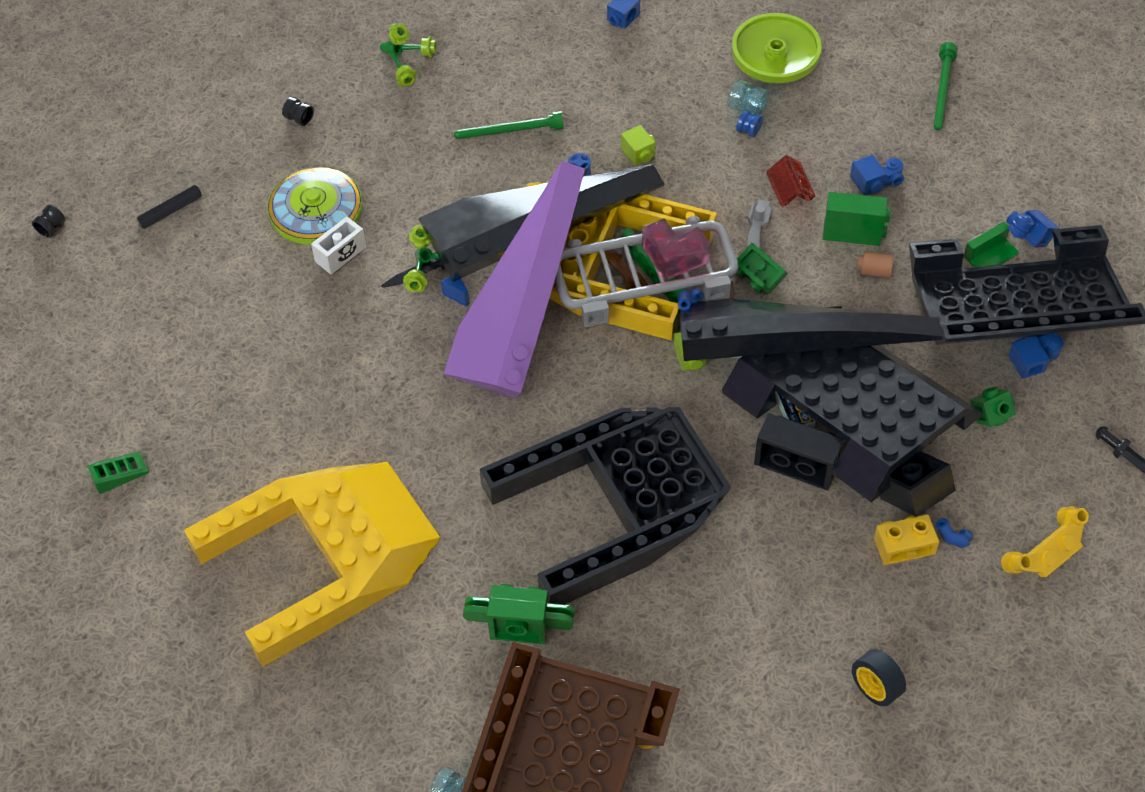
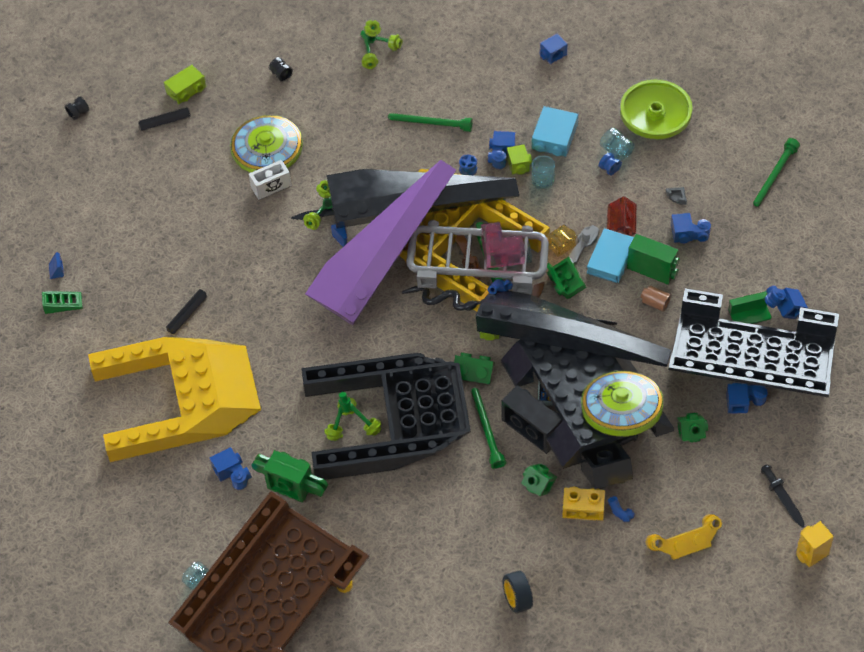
camera: 20 degrees right, 0 degrees up
(93, 428) = (56, 266): none -> blue slope
(182, 158) = (185, 84): none -> lime hinge
(291, 439) = (186, 311): none -> black axle
(429, 622) = (227, 465): none -> blue brick
(554, 501) = (348, 406): none -> plant
(608, 133) = (499, 144): none -> blue brick
(661, 332) = (468, 306): none -> black animal
(667, 102) = (554, 131): none -> medium azure brick
(675, 151) = (543, 172): none -> clear light blue wheel
(698, 409) = (475, 369): none -> green bracket
(736, 224) = (561, 240): none -> clear yellow brick
(771, 514) = (496, 459): none -> green piece
(799, 229) = (610, 256): none -> medium azure piece
(842, 139) = (677, 194): none -> dark grey tile
(845, 527) = (538, 479): none -> green brick
(915, 398) = (622, 403): none -> dish

